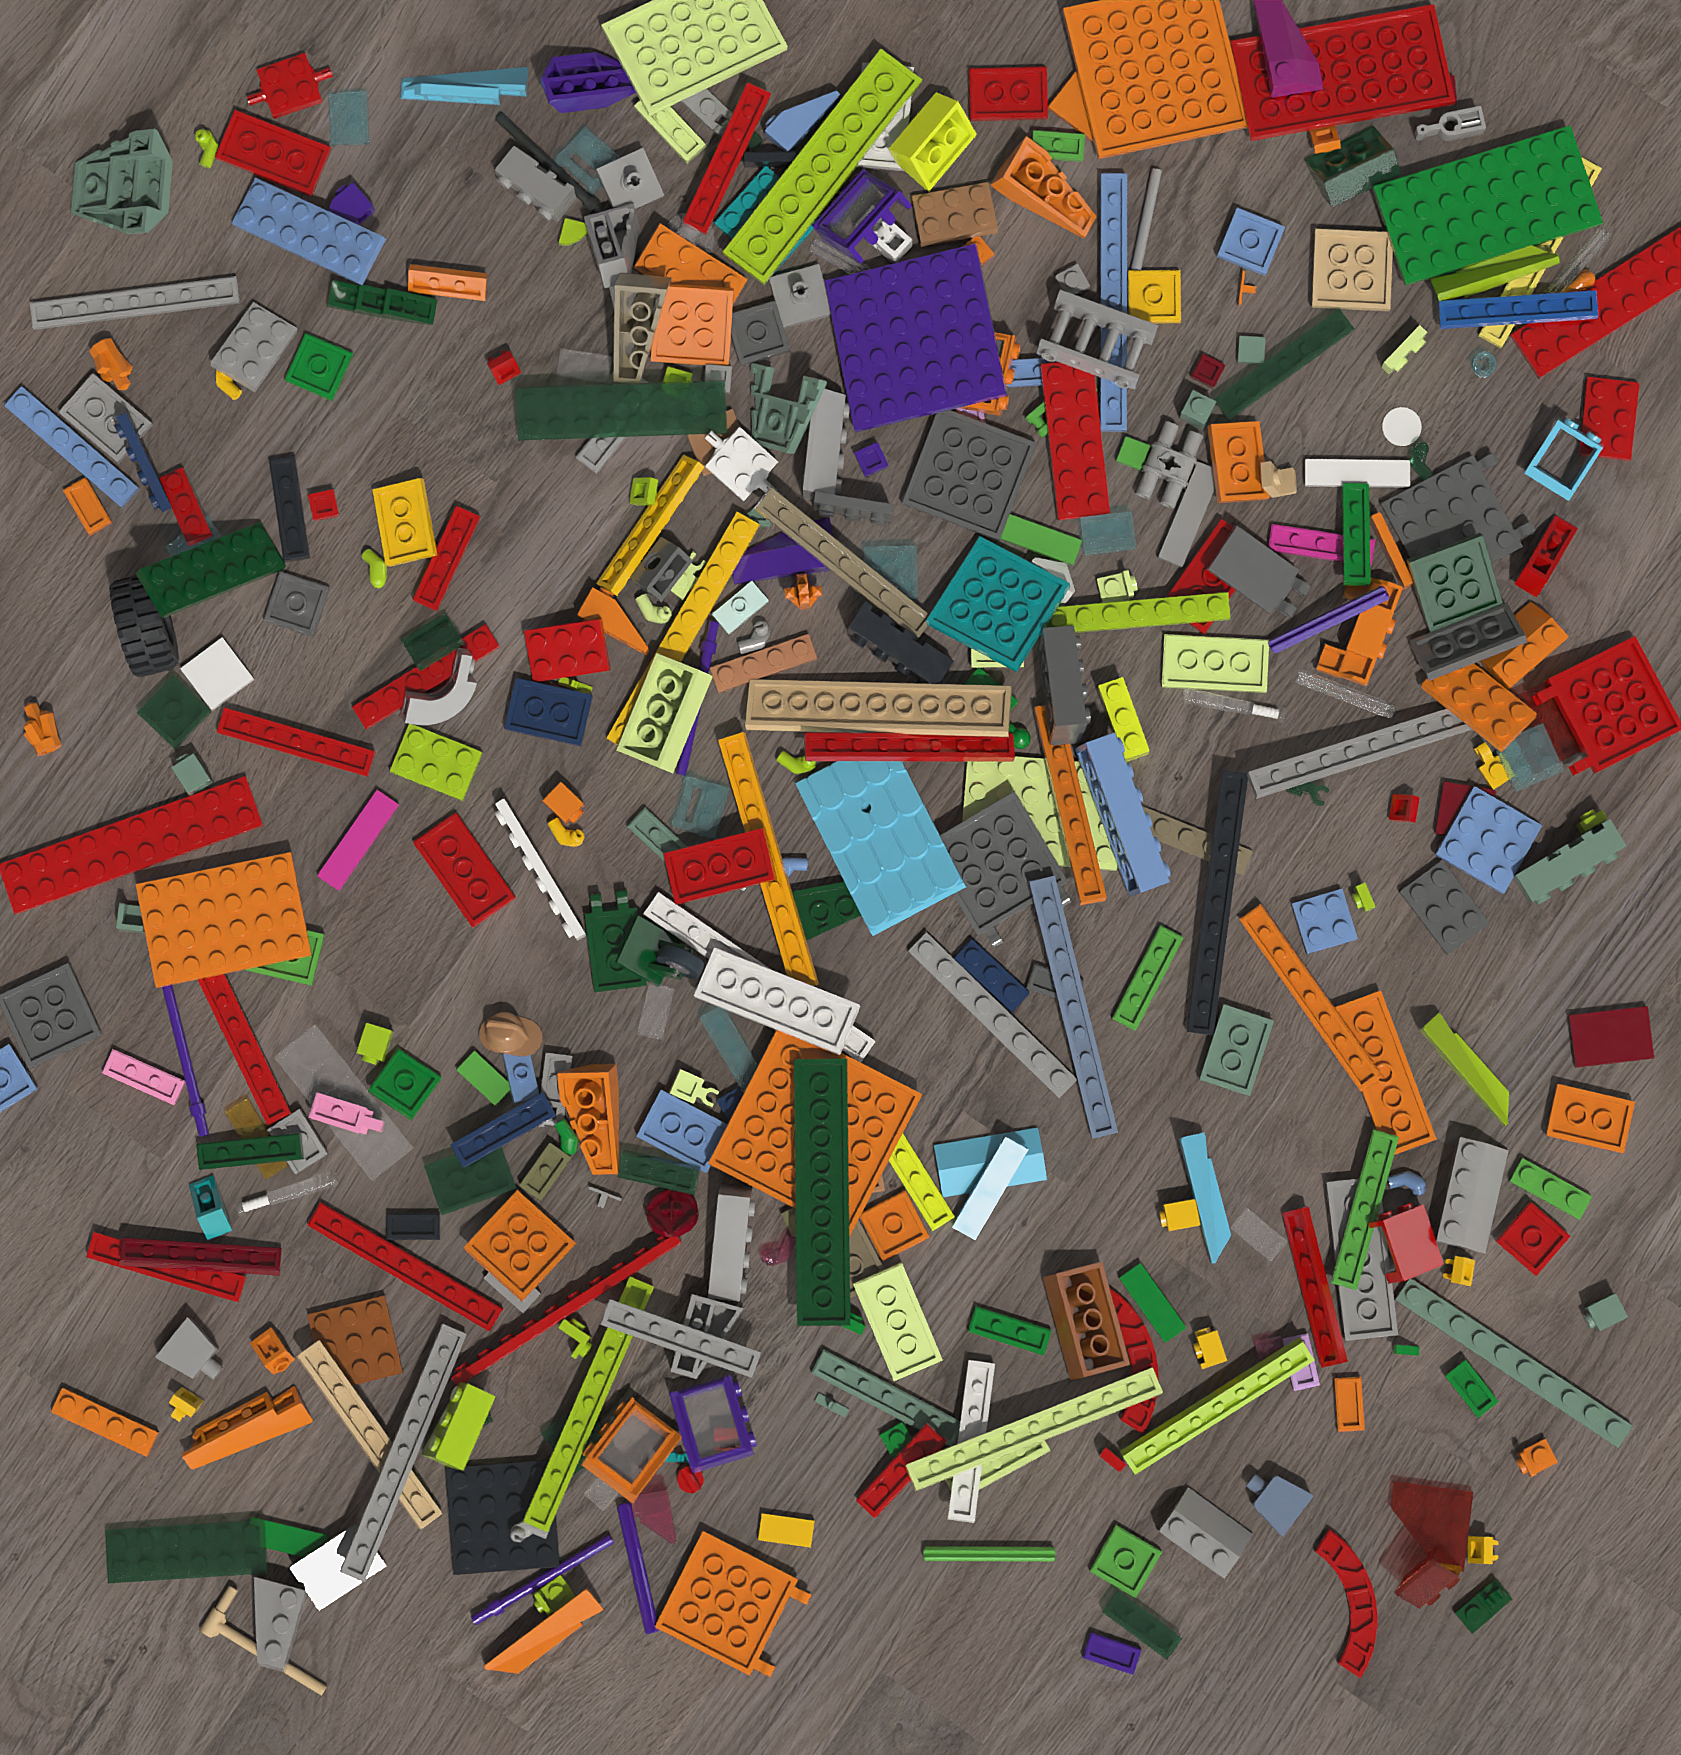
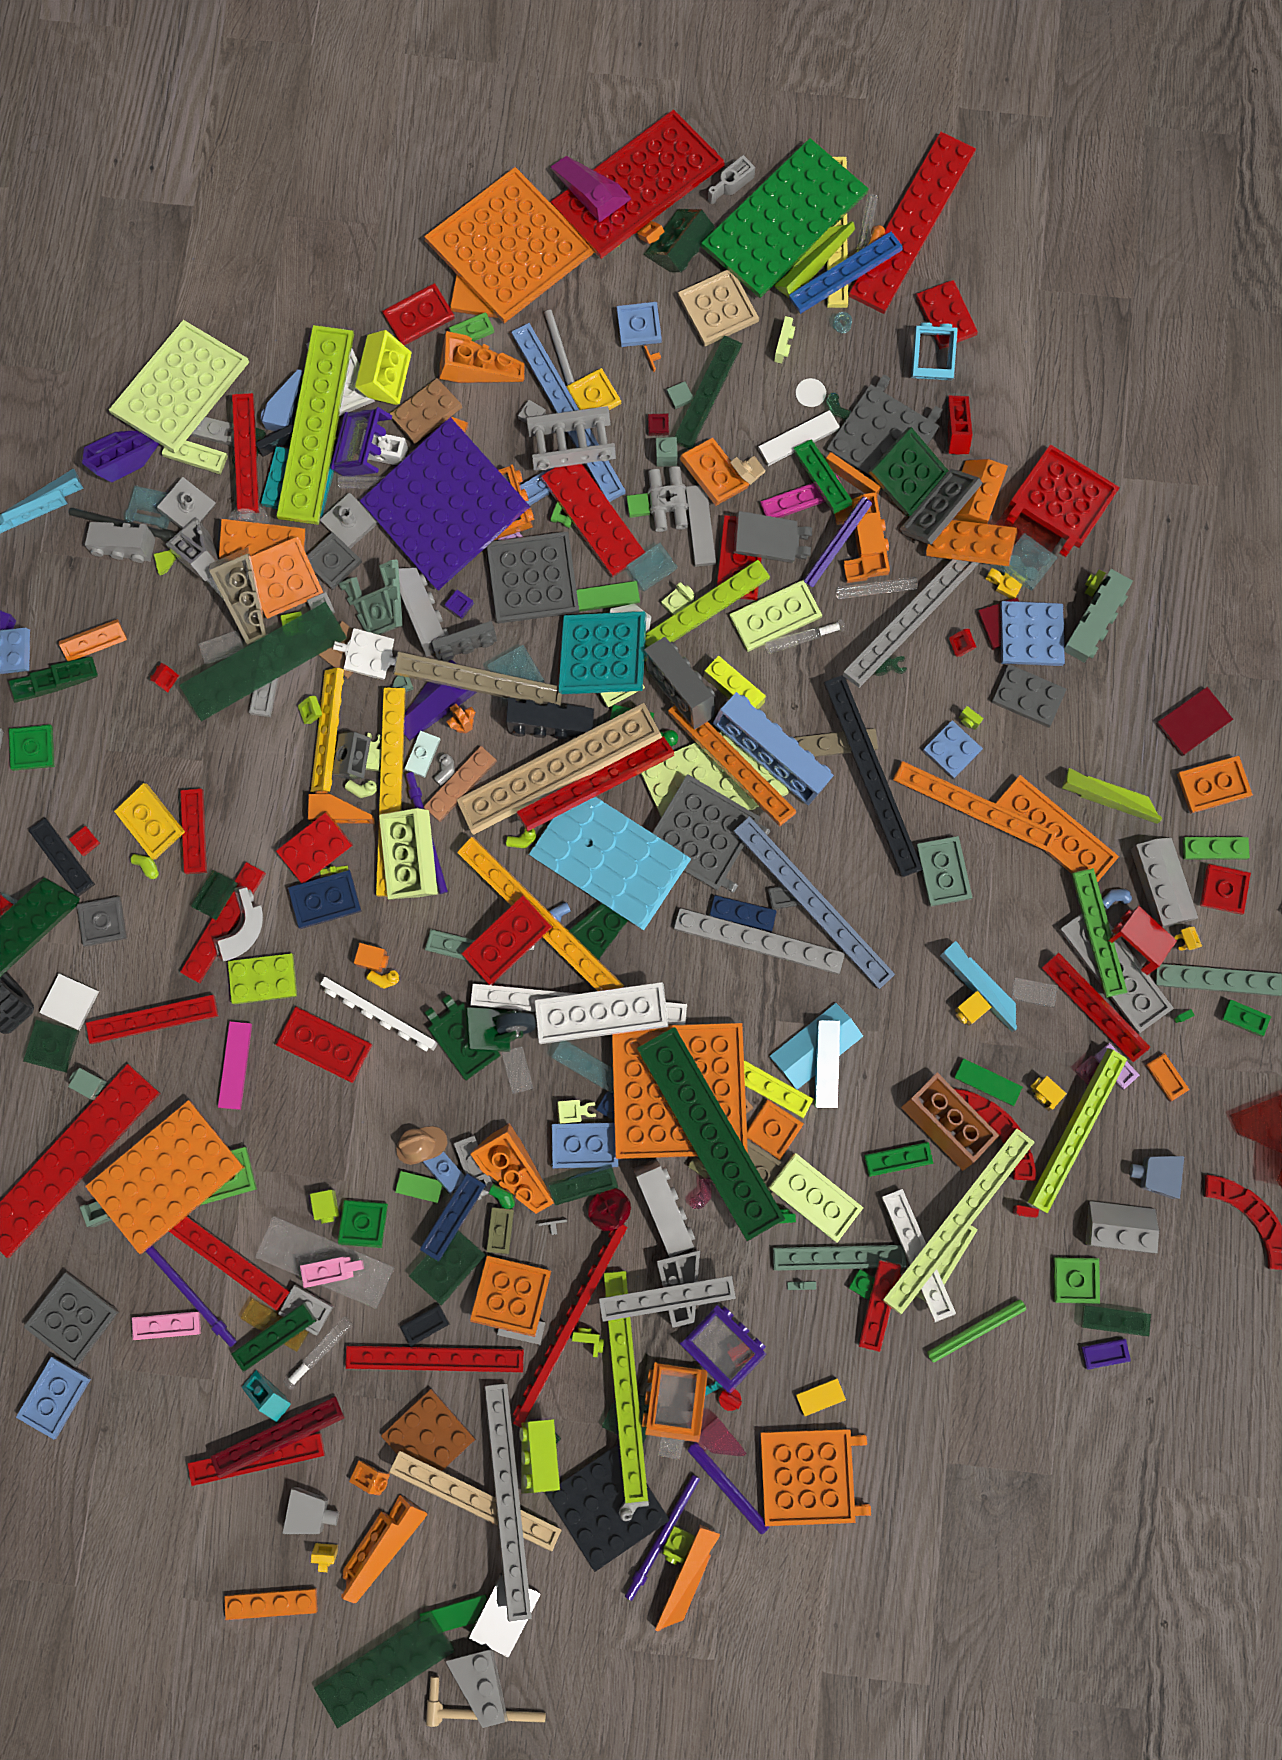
camera: 30 degrees left, 5 degrees down
(708, 811) = (477, 906): clear light blue plate -> none
(1147, 978) = (853, 855): bright green tile -> none

